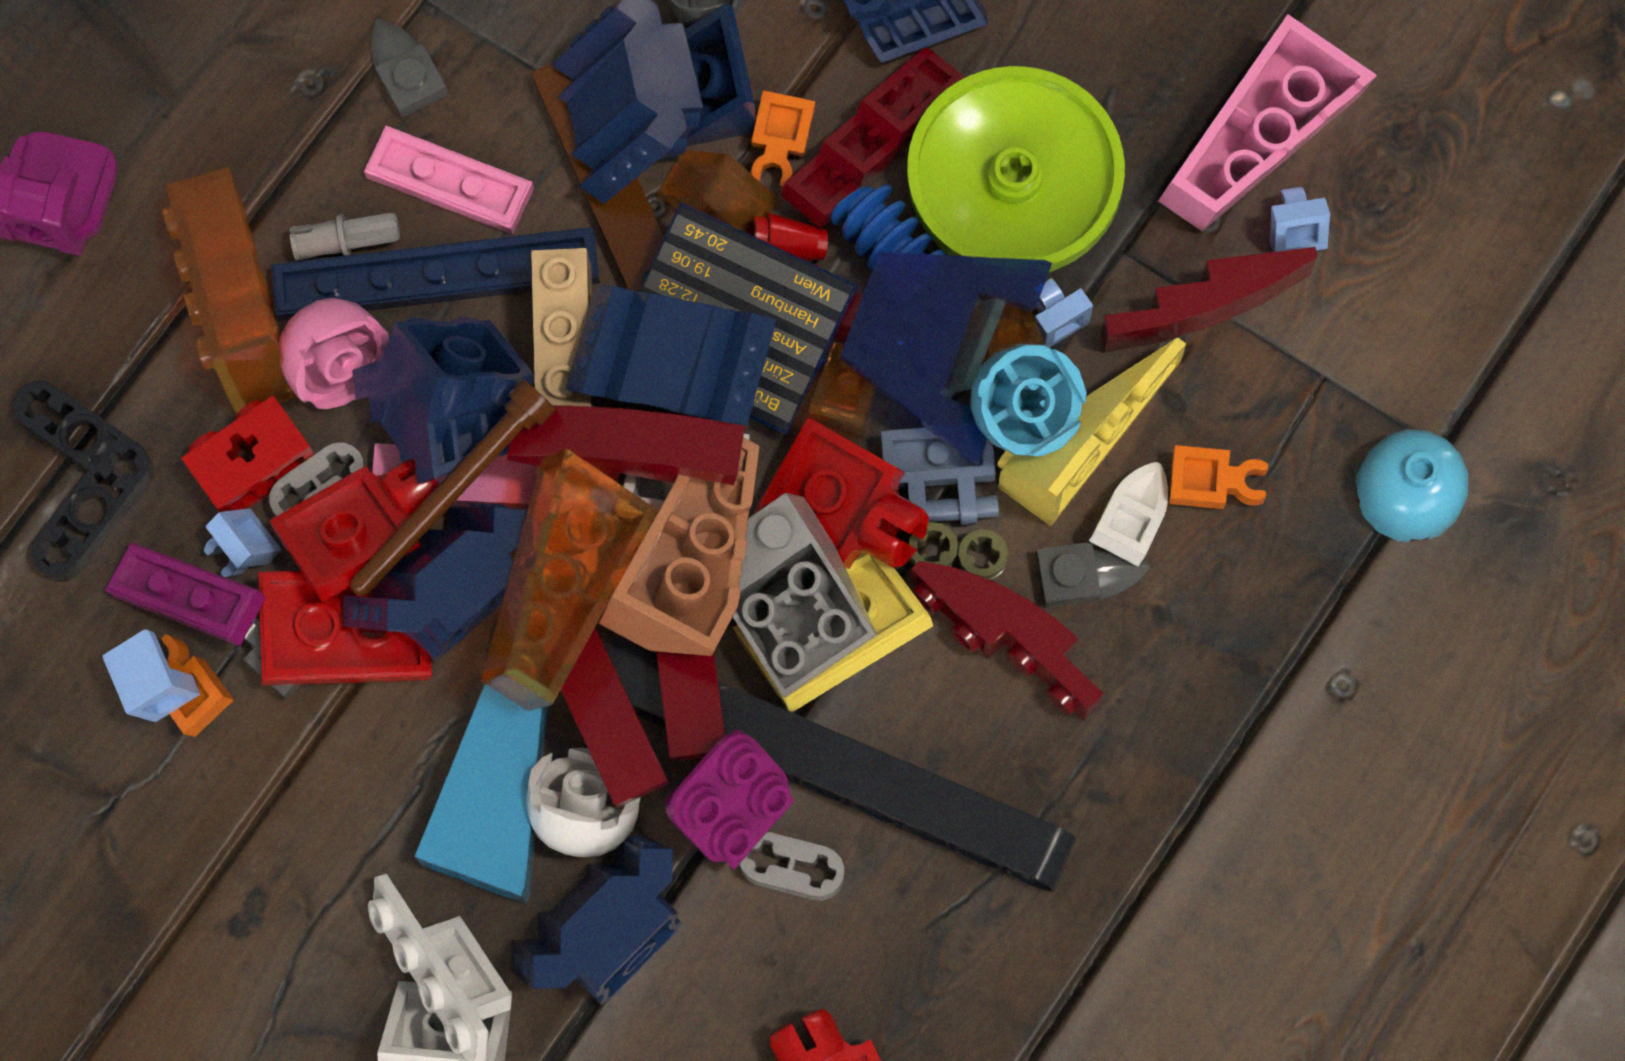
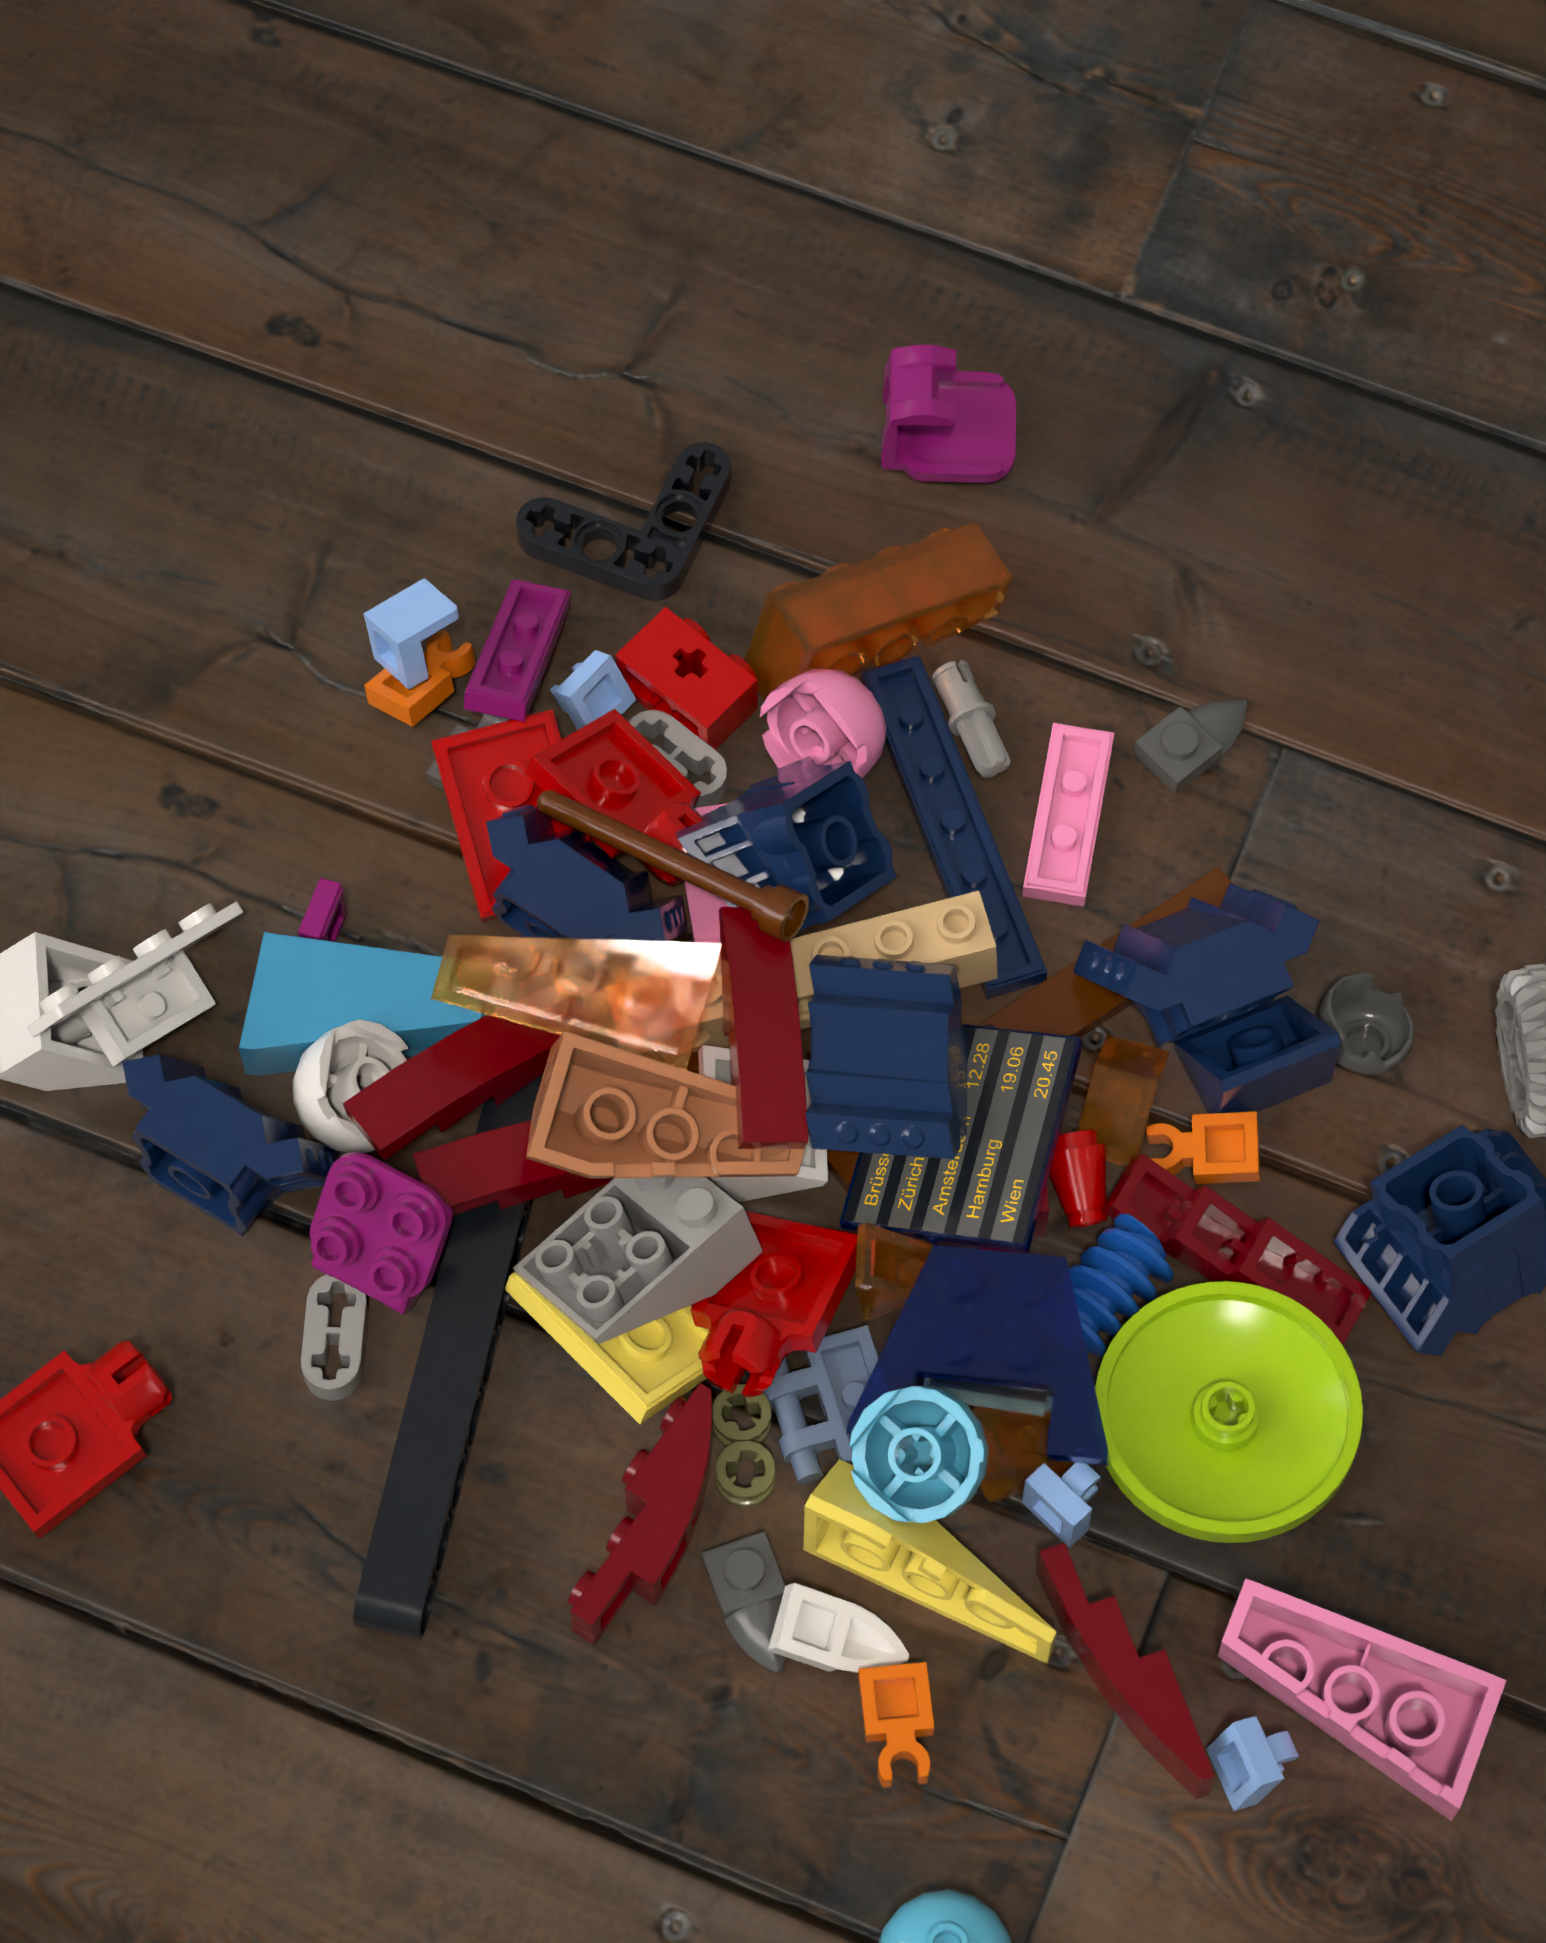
camera: 75 degrees right, 10 degrees down
(403, 807) = (325, 912): none -> magenta tile

